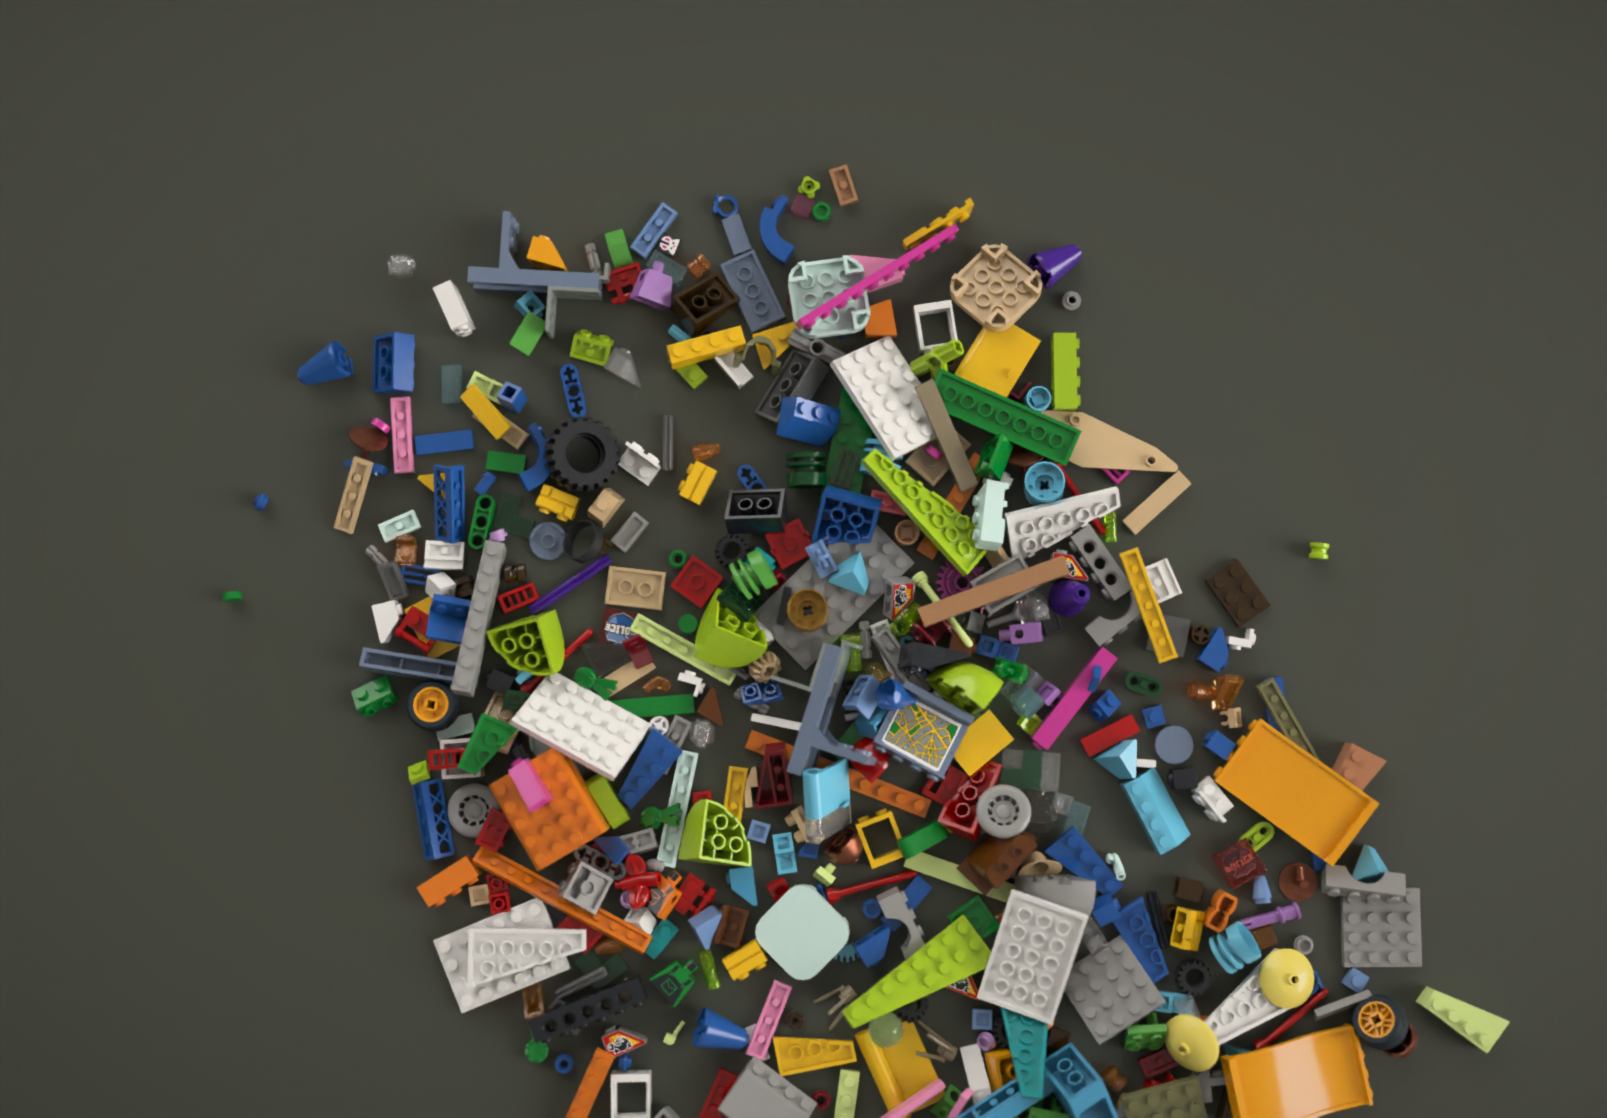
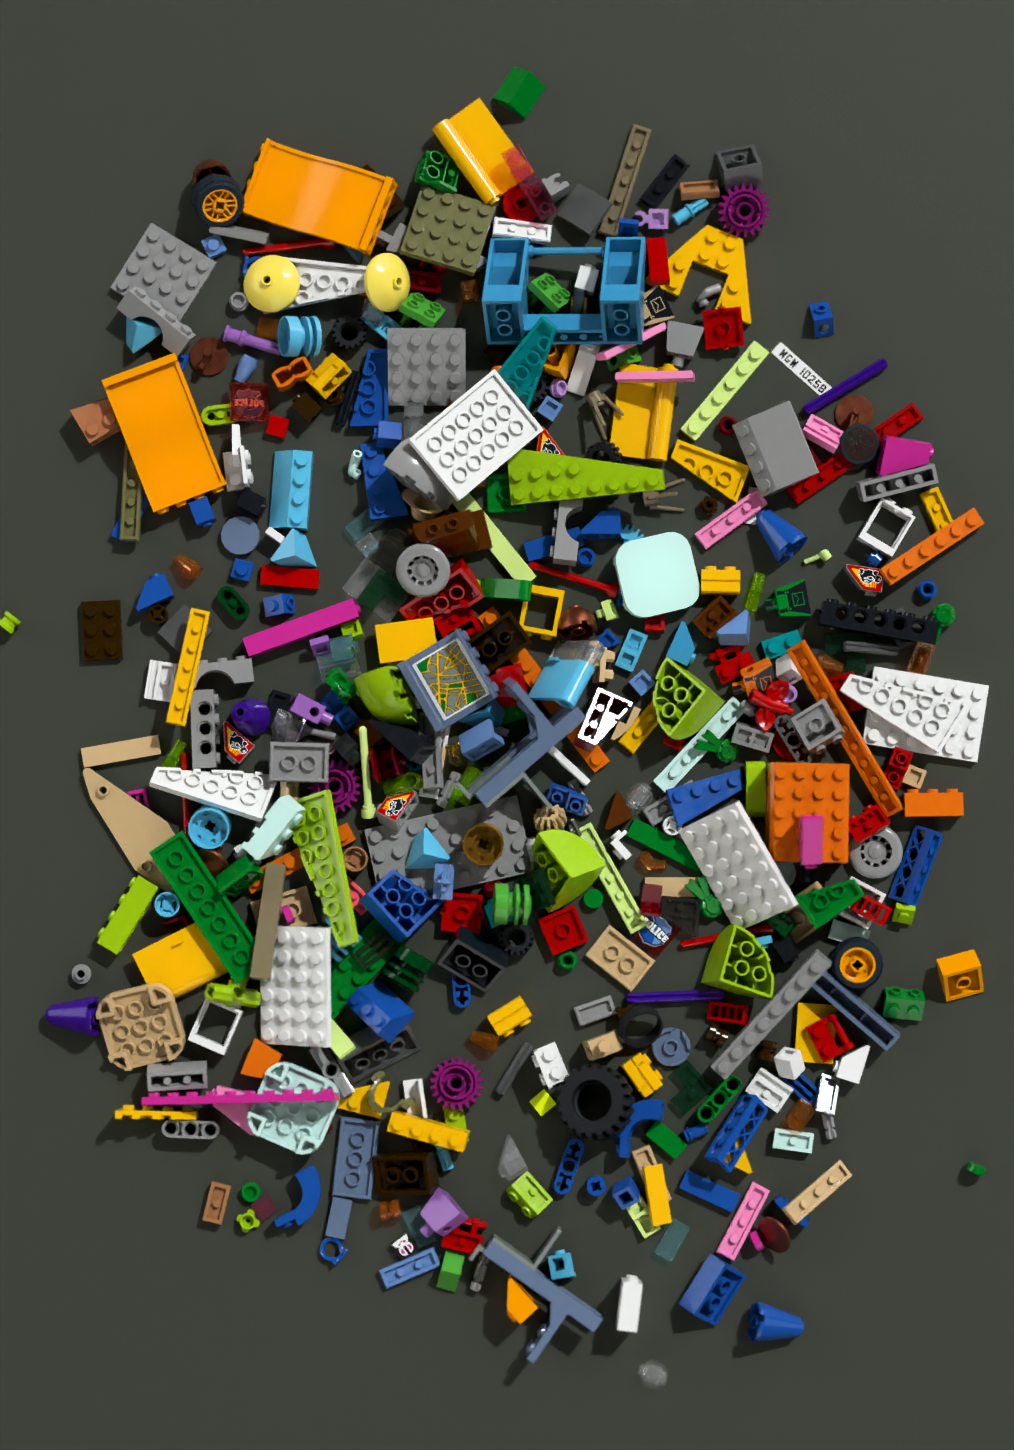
camera: 155 degrees left, 0 degrees up
(260, 502) = (902, 1237): blue plate -> none
(340, 750) = (960, 975): none -> light orange slope
(447, 618) = (798, 1030): blue bracket -> none
(498, 535) = (712, 1077): lavender plate -> none
(528, 333) = (577, 1241): bright green panel -> none
(544, 391) = (593, 1183): none -> blue wheel
(613, 847) = (774, 745): blue tile -> none
(627, 429) = (542, 1102): none -> neon yellow tile
(698, 409) = (459, 1071): none -> magenta gear
(783, 606) = (501, 861): black tile -> none
(824, 373) = (340, 1043): none -> yellowish green slope
(886, 1030) = (636, 450): clear light blue piece -> none
(893, 696) = (455, 725): blue hat -> none
(899, 790) = (500, 641): none -> dark brown slope
(906, 223) = (200, 1129): none -> light grey beam
(940, 265) = (177, 1076): none -> light grey brick
(993, 591) = (313, 761): medium nougat tile -> none
(1096, 676) = (273, 632): blue tile -> none
(1201, 857) = (277, 426): none -> red tile
(1227, 690) = (166, 552): clear orange tile -> none
(1230, 823) = (236, 442): none -> white tile
(1234, 717) = (174, 525): tan tile -> none
(1236, 643) = (131, 587): white bracket -> none
(1470, 1022) = (141, 154): yellowish green wedge -> none

